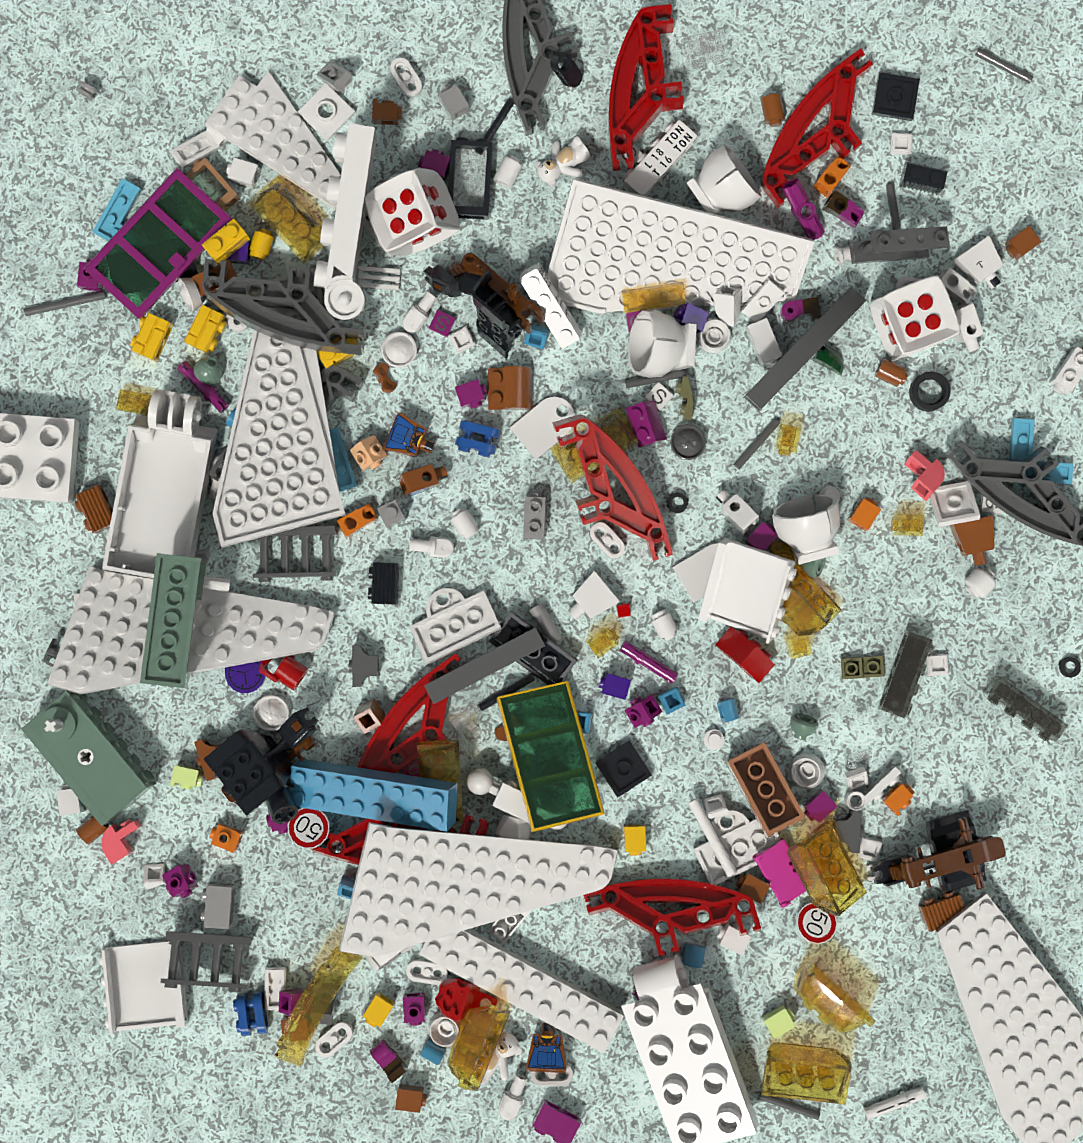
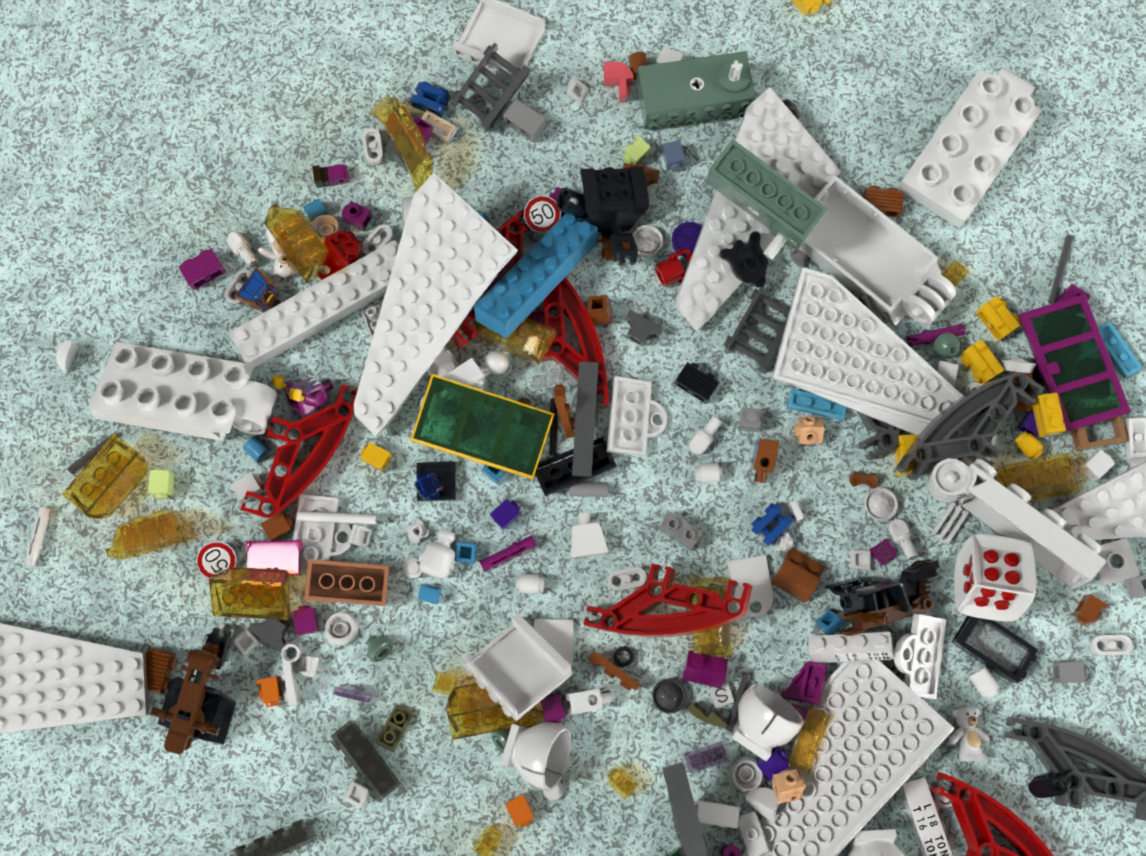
camera: 120 degrees right, 10 degrees down
(169, 738) = (673, 155): none -> sand blue brick
(180, 881) = (560, 103): magenta brick -> none
(234, 837) = (572, 160): orange brick -> none
(237, 356) = (947, 371): none -> white brick
(238, 604) = (747, 260): none -> black tile
(357, 520) = (760, 390): orange leg -> none
(378, 1010) = (373, 189): yellow brick -> none
(407, 437) = (804, 468): torso -> none
(410, 1098) = (292, 174): dark orange brick -> none
(435, 161) = (1025, 625): magenta brick -> none
(453, 423) = (795, 511): none -> white tile
(471, 394) = (811, 540): magenta brick -> none
(488, 417) = (784, 542): none -> white plate
(489, 689) = (564, 410): none -> dark orange plate
(497, 122) = (1031, 699): black bar -> none
(517, 239) = (922, 654): none -> white plate
(603, 325) = (808, 684): none -> magenta wing
(603, 642) = (546, 525): clear yellow brick -> none
(618, 941) = (304, 395): none -> magenta torso
(623, 610) = (562, 558): red piece -> none
(633, 772) = (428, 485): none -> clear blue head
(640, 714) = (471, 523): magenta brick -> none
(685, 754) = (416, 537): none -> white plate
(692, 722) = (438, 558): none -> white piece
(696, 503) = (612, 671): none -> dark orange plate
(704, 293) = (788, 786): none -> light nougat brick
(721, 379) = (705, 757): none -> clear purple tile
(746, 653) = (465, 635): red brick -> none
(756, 443) = (633, 754): dark grey bar -> none
(857, 723) = (352, 694): none -> clear purple tile

